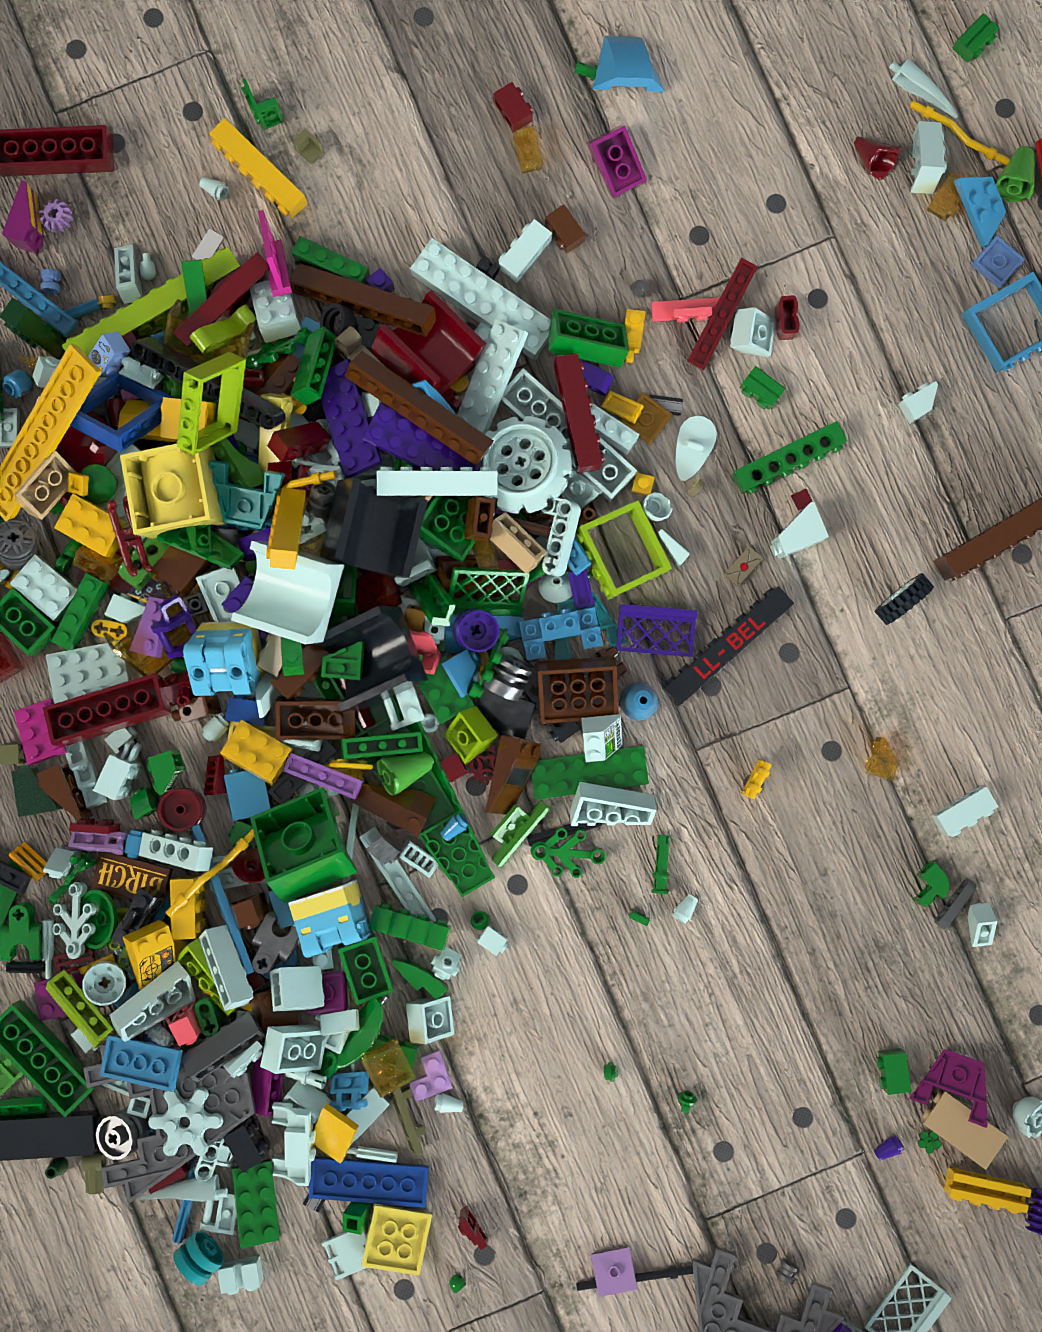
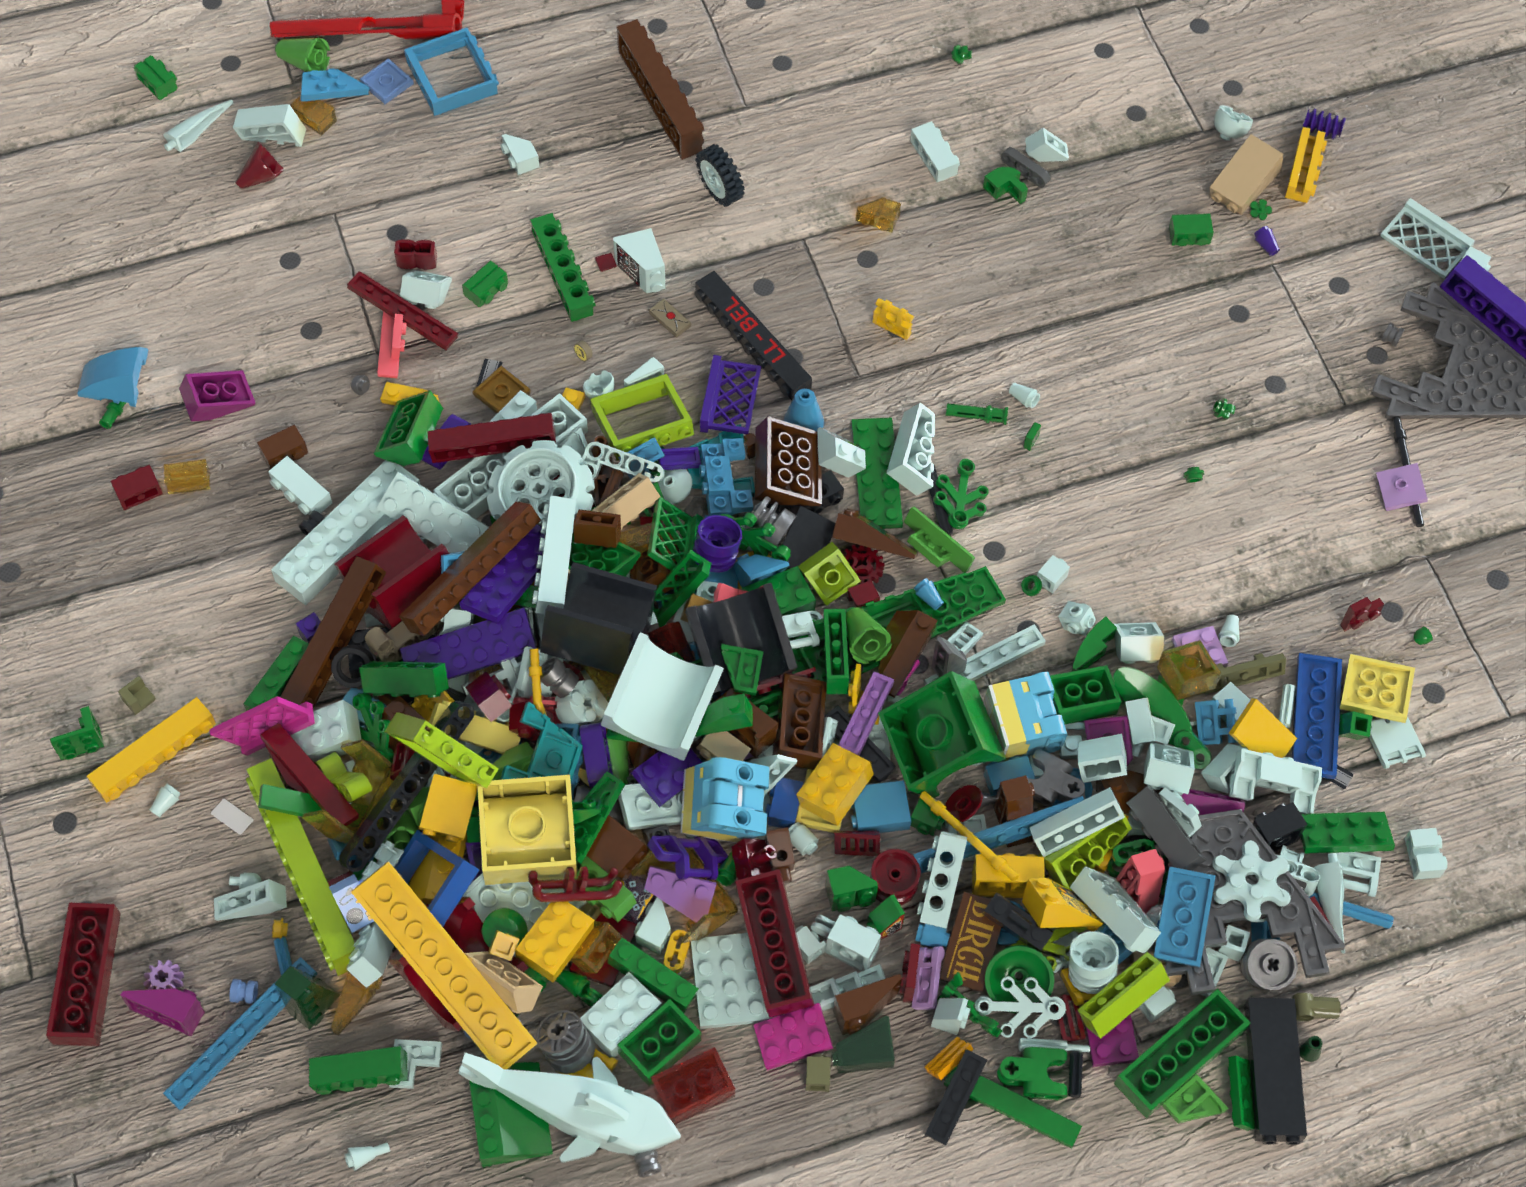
camera: 85 degrees left, 25 degrees down
(17, 383) = (364, 1034): dark azure head -> none
(198, 1258) = (1408, 890): teal wheel -> none
(286, 529) = (592, 682): yellow brick -> none
(308, 1077) = (1201, 761): light aqua pin -> none
(410, 927) = (1037, 641): green brick -> none
(622, 406) = (487, 407): yellow tile -> none
(694, 445) = (536, 352): light aqua shield -> none
(928, 112) = (223, 122): yellow bar -> none
(959, 1076) = (1195, 174): magenta wing -> none

